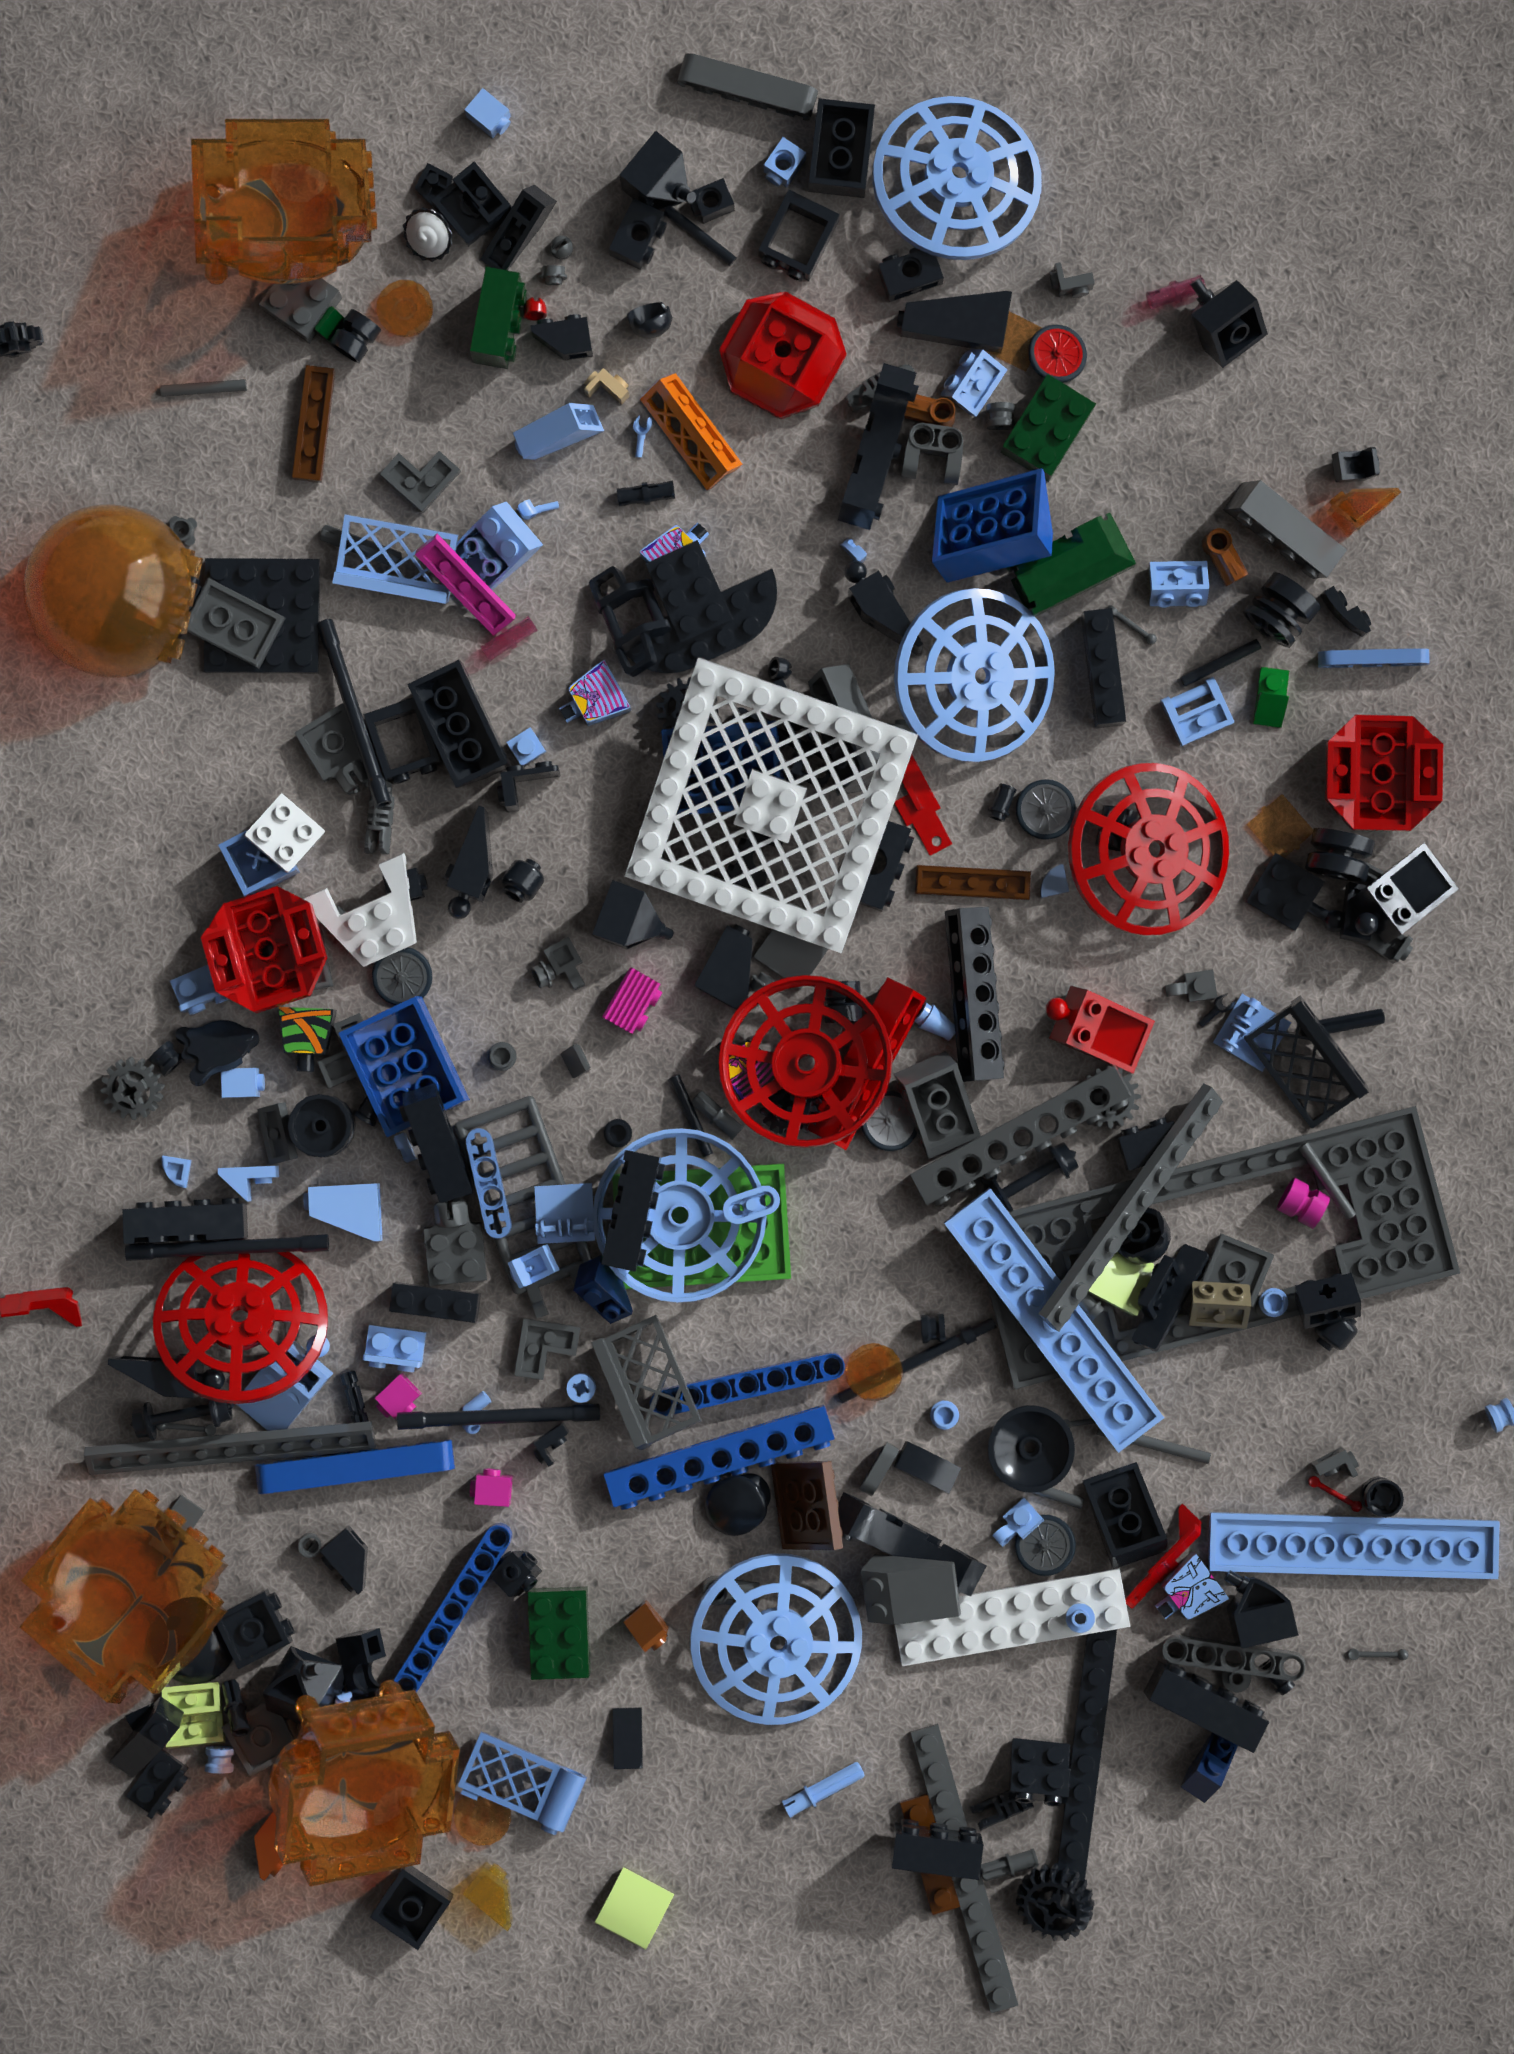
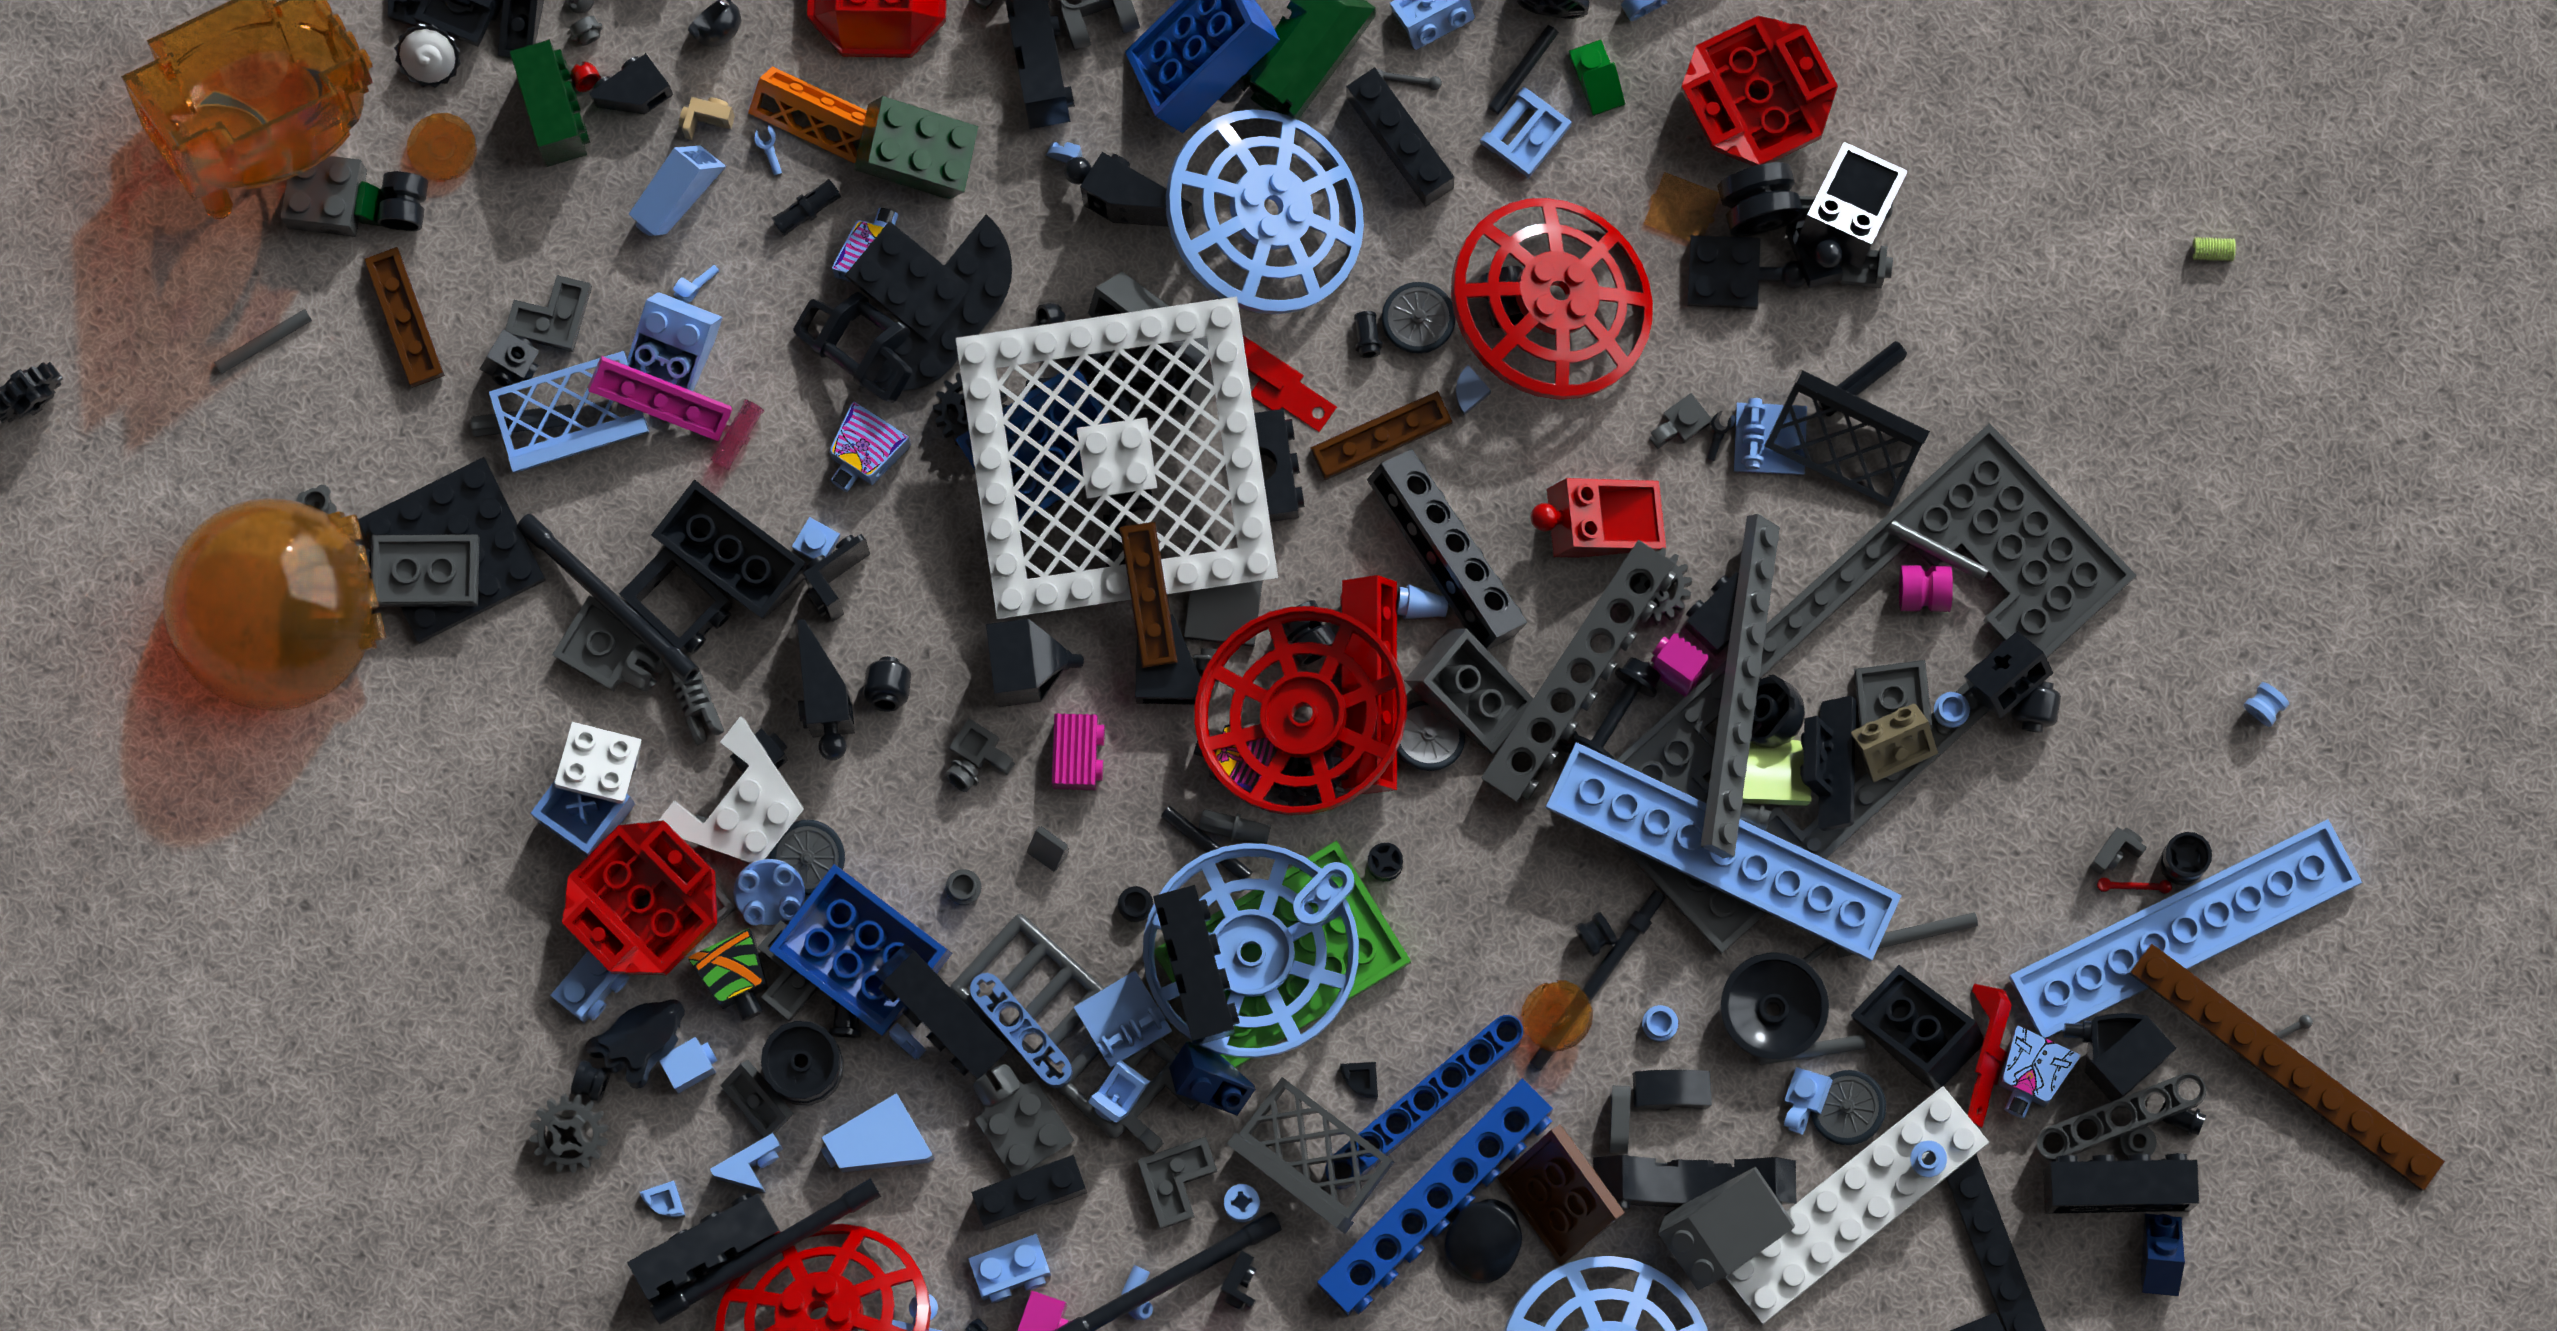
camera: 25 degrees left, 10 degrees down
(361, 989) = (768, 892): none -> light blue dish
(373, 498) = (510, 360): none -> black brick
(712, 1342) = (1361, 1078): none -> black tile
(741, 917) = (1148, 594): none -> reddish brown tile
(746, 493) = (916, 147): none -> dark green brick
(814, 1197) = (1388, 856): none -> black wheel
(1096, 1166) = (1679, 663): none -> dark pink brick
(1370, 1681) = (2286, 1067): none -> reddish brown plate

